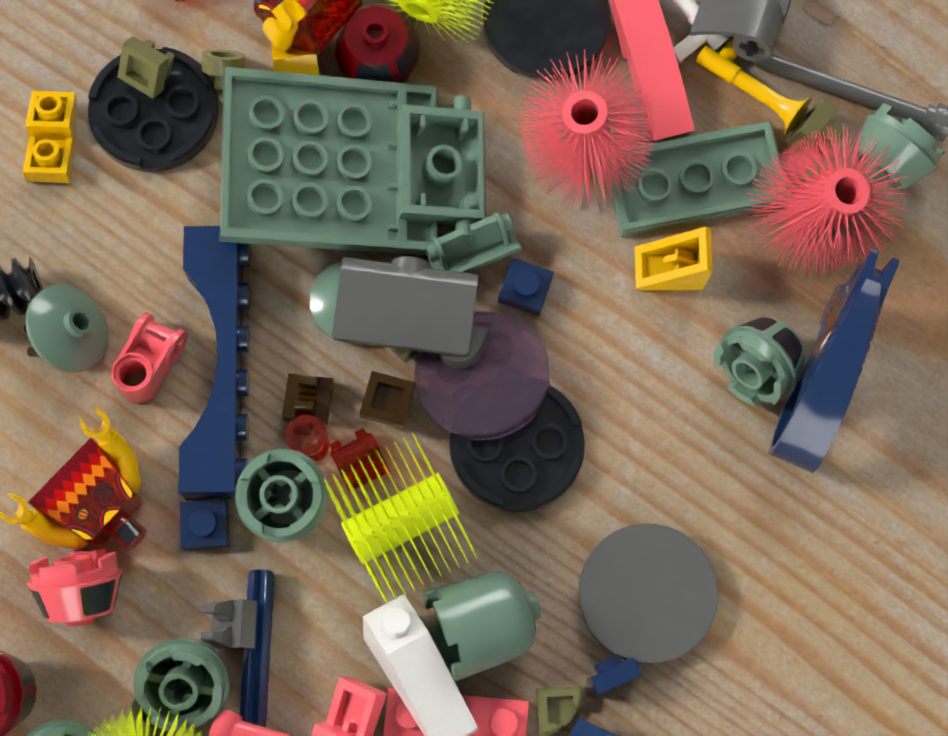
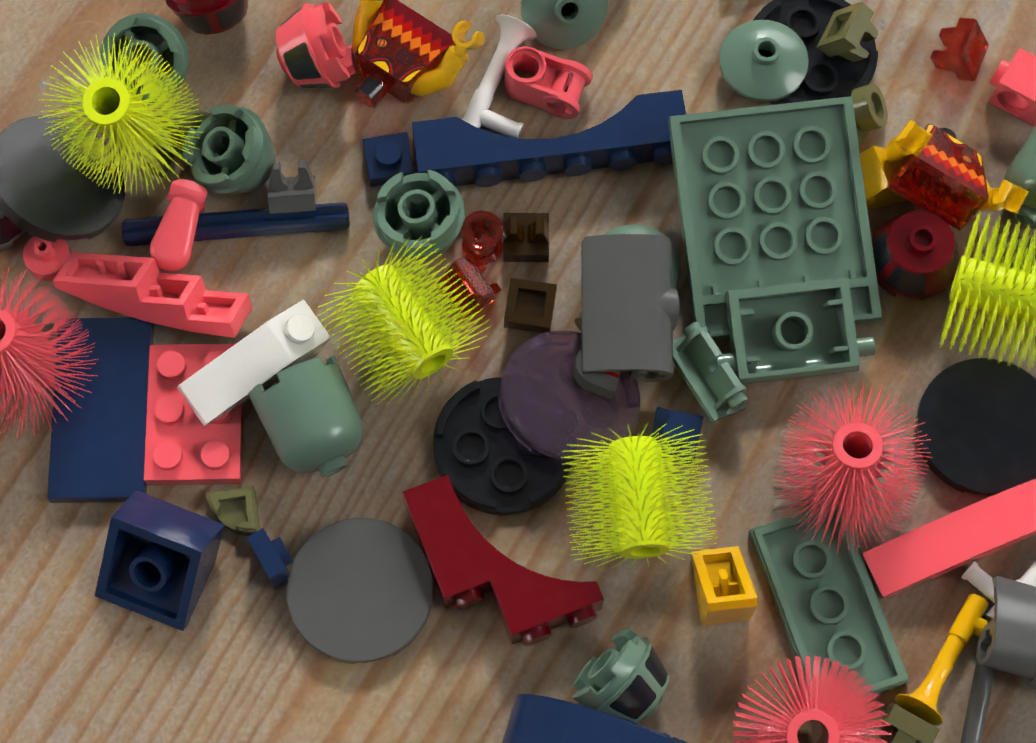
camera: 85 degrees right, 5 degrees down
(165, 166) = (759, 76): none -> sand green dish
(168, 431) = (512, 34): none -> white piece
(605, 318) = (638, 497): none -> neon yellow piece
(638, 488) = (469, 566): none -> dark red arch

